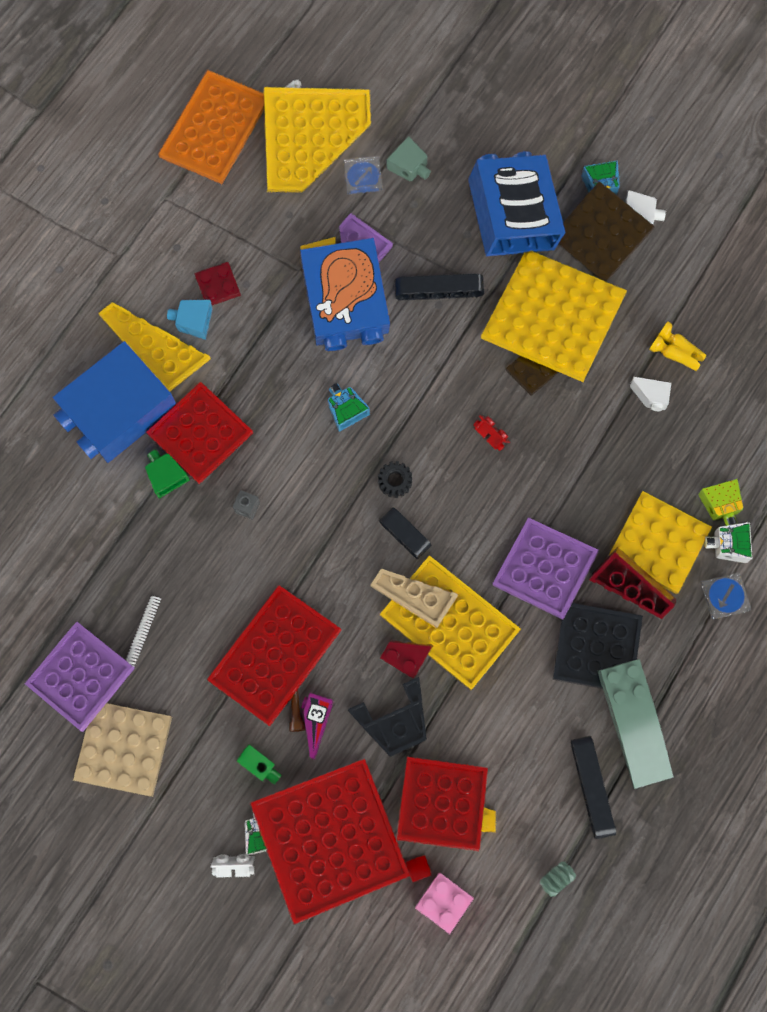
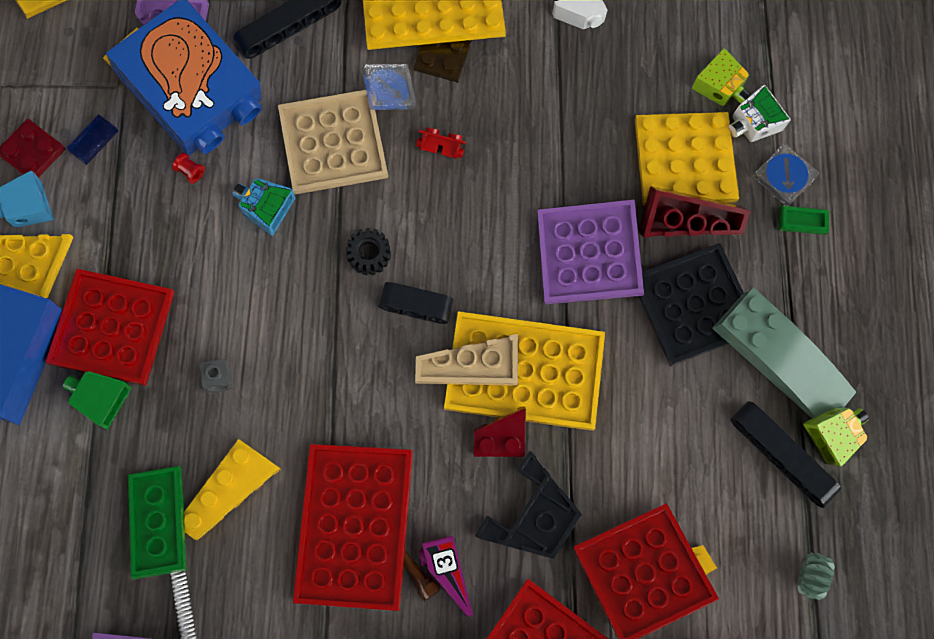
camera: 40 degrees left, 0 degrees up
(154, 576) = (156, 522): none -> green tile
(213, 580) = (233, 481): none -> yellow wing
(261, 299) = (92, 139): none -> clear blue tile
(311, 354) = (188, 168): none -> red bush
(417, 389) = (332, 142): none -> tan plate
(479, 372) = (388, 86): none -> clear tile
(639, 795) = (838, 433): none -> lime torso
(717, 636) = (804, 220): none -> green tile

